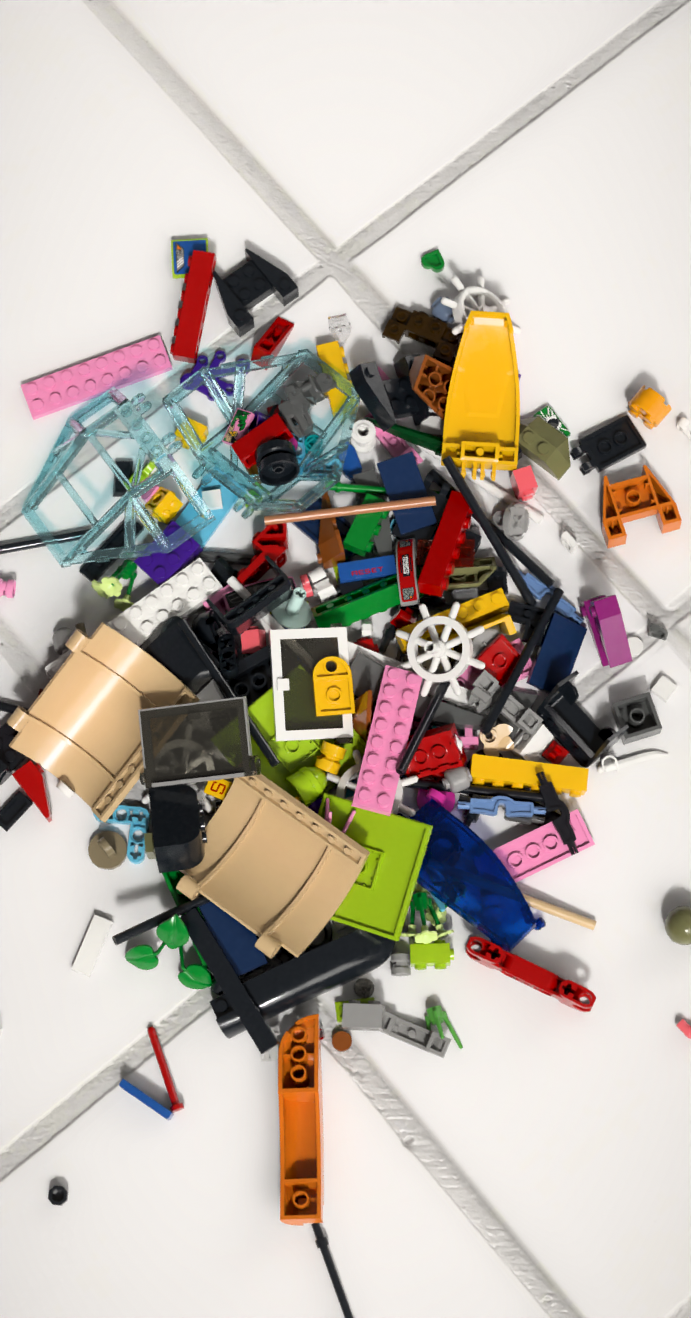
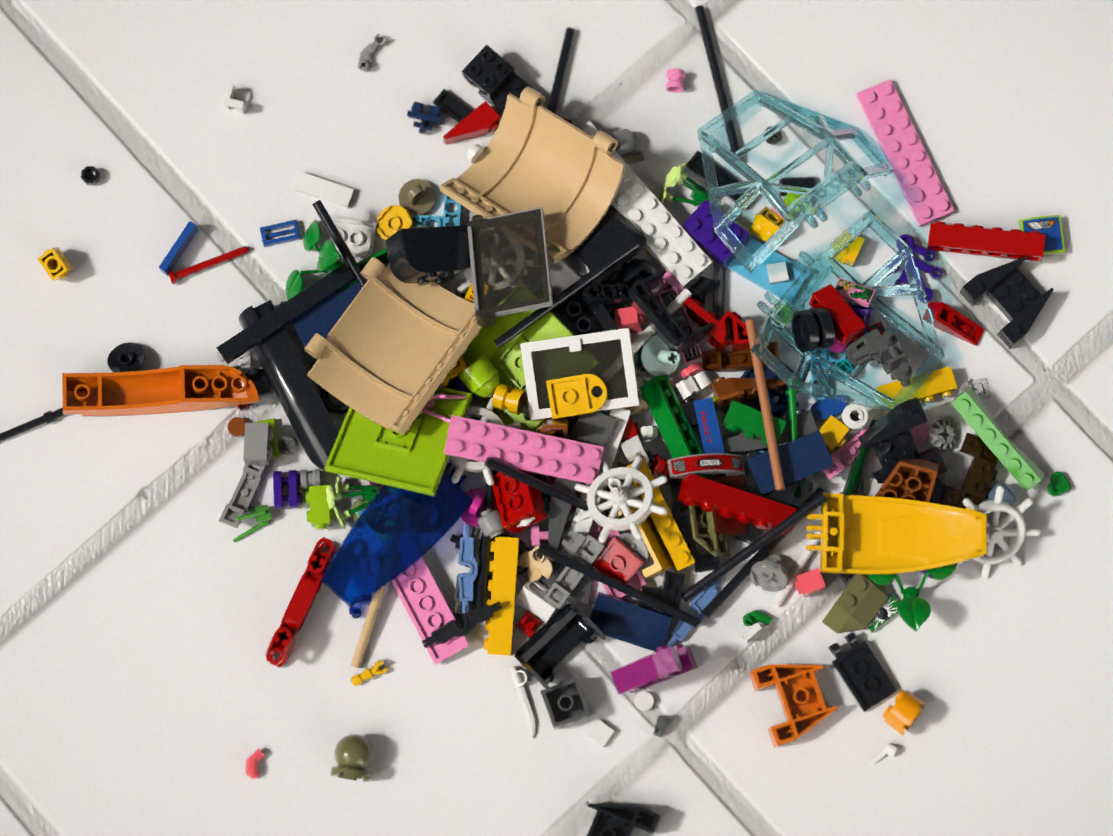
camera: 85 degrees right, 5 degrees up
(17, 846) = (417, 113): none -> dark blue hips
(66, 500) = (775, 139): none -> clear smoke tile
(135, 872) = (393, 219): none -> yellow tile
(138, 1009) = (283, 239): none -> blue tile
(141, 909) = (357, 235): none -> white tile
(163, 1231) = (48, 261): none -> yellow head
(256, 1159) = (126, 357): none -> black dish
(294, 1015) = (260, 381): none -> black tile
(298, 548) = (733, 360): none -> reddish brown slope
(341, 499) = (779, 402): none -> dark blue hips
(374, 454) = (833, 433): none -> yellow head
(385, 641) = (634, 448): none -> white panel
(388, 361) = (939, 441): none -> light grey gear
(401, 982) = (294, 497): none -> dark purple brick
(406, 297) = (1015, 461): none -> bright green arch
(552, 538) = (756, 616): none -> green arm
(556, 387) = (911, 608): none -> green plant
(601, 911) = (368, 673): none -> yellow piece

